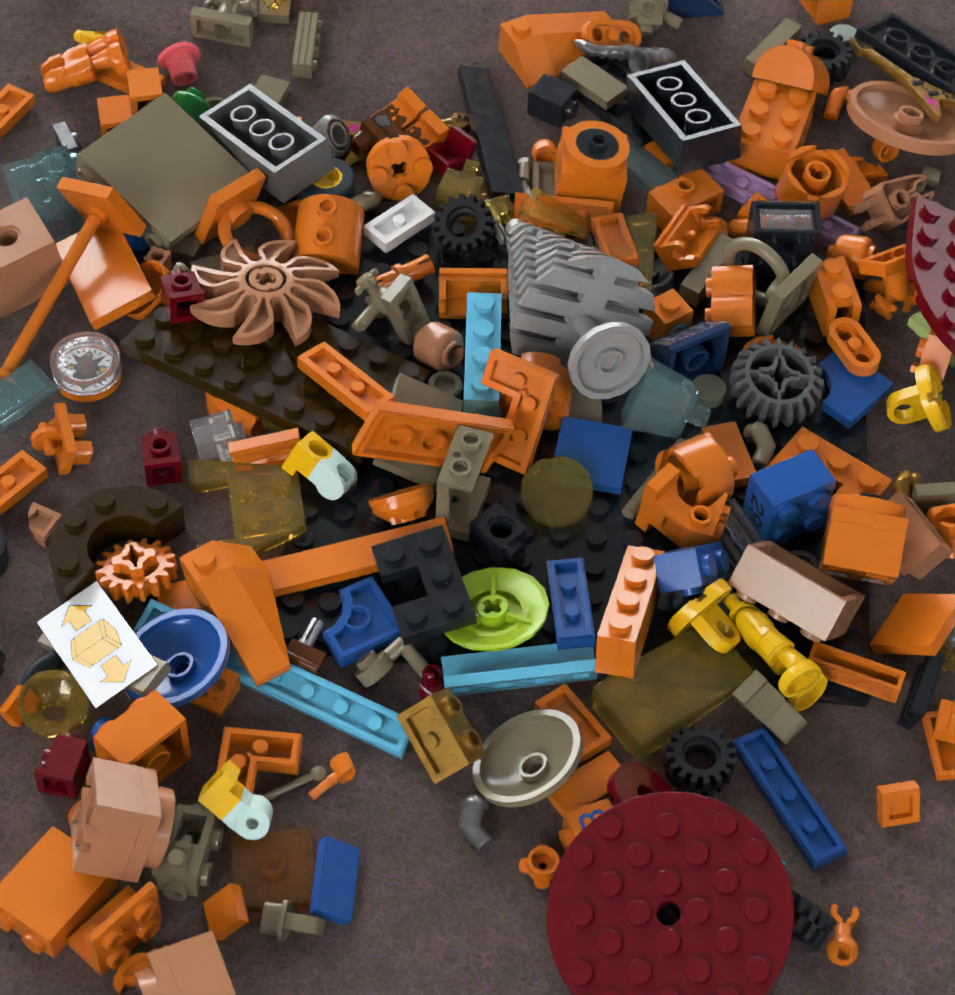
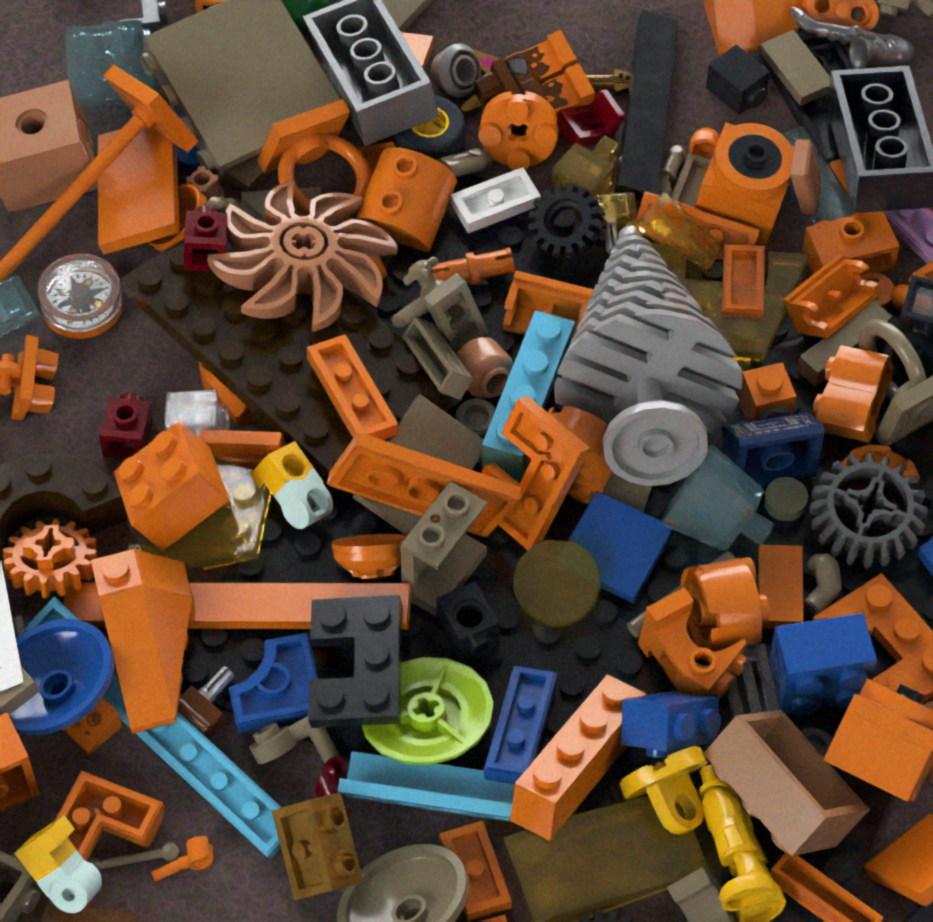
camera: 20 degrees right, 5 degrees up
(221, 488) = (170, 486): none -> orange brick
(401, 345) = (437, 358): none -> dark tan piece
(637, 154) = (806, 177): none -> nougat tile

